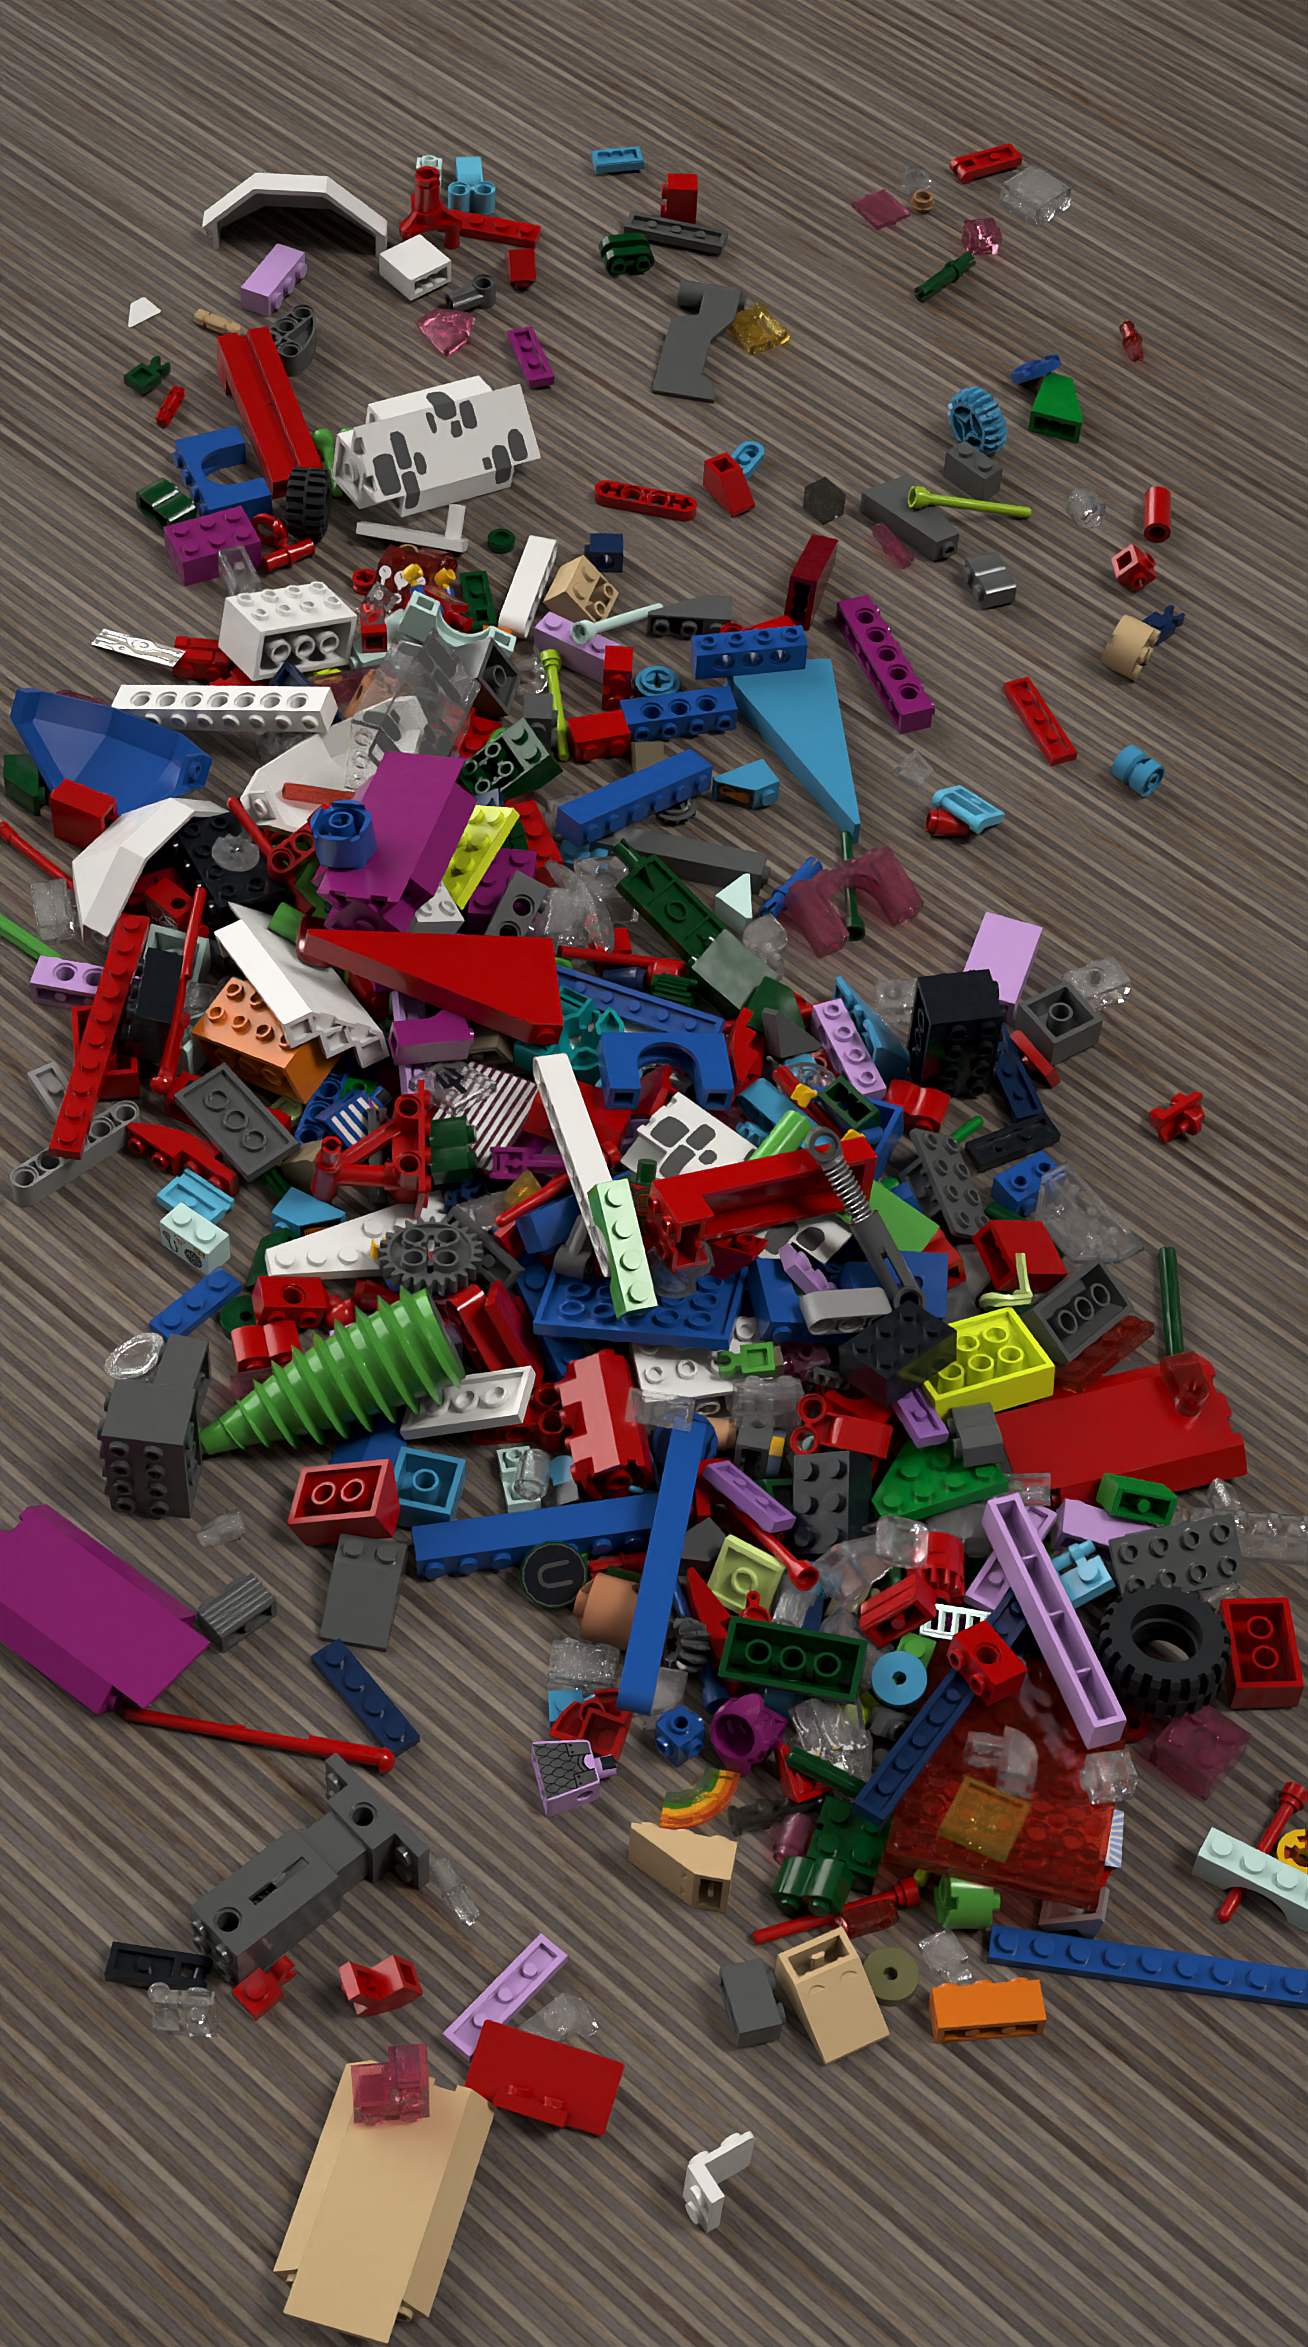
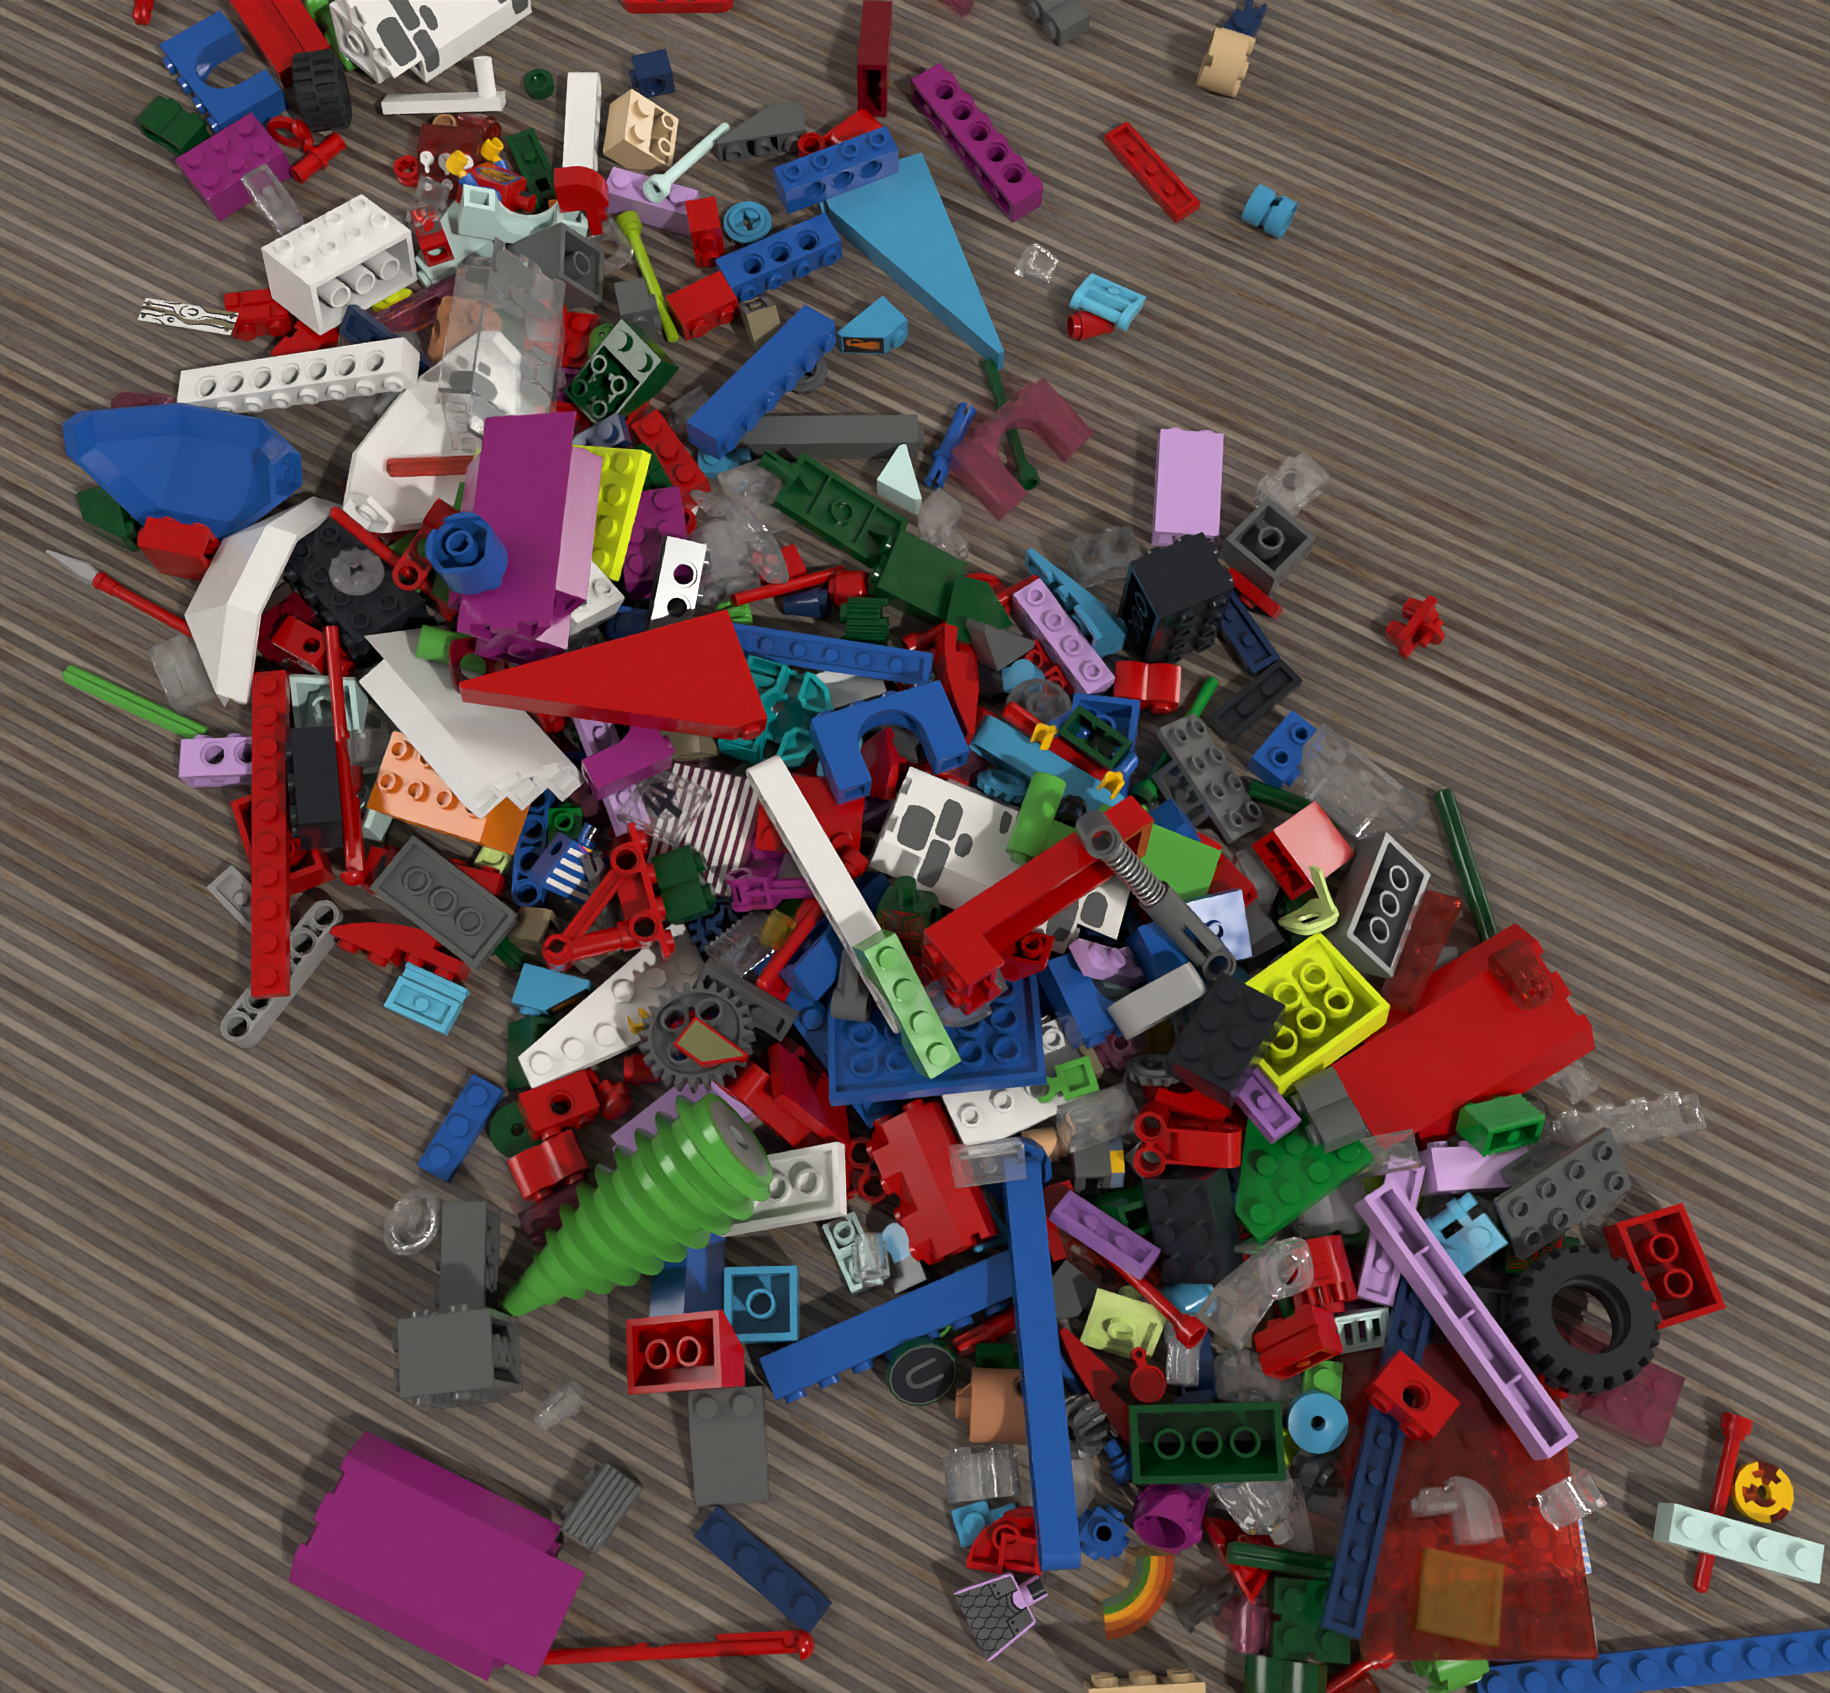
camera: 10 degrees left, 20 degrees up
(194, 1239) = (438, 1050): light aqua brick -> none
(438, 1254) = (707, 1046): none -> olive tile
(516, 619) = (583, 189): none -> red brick

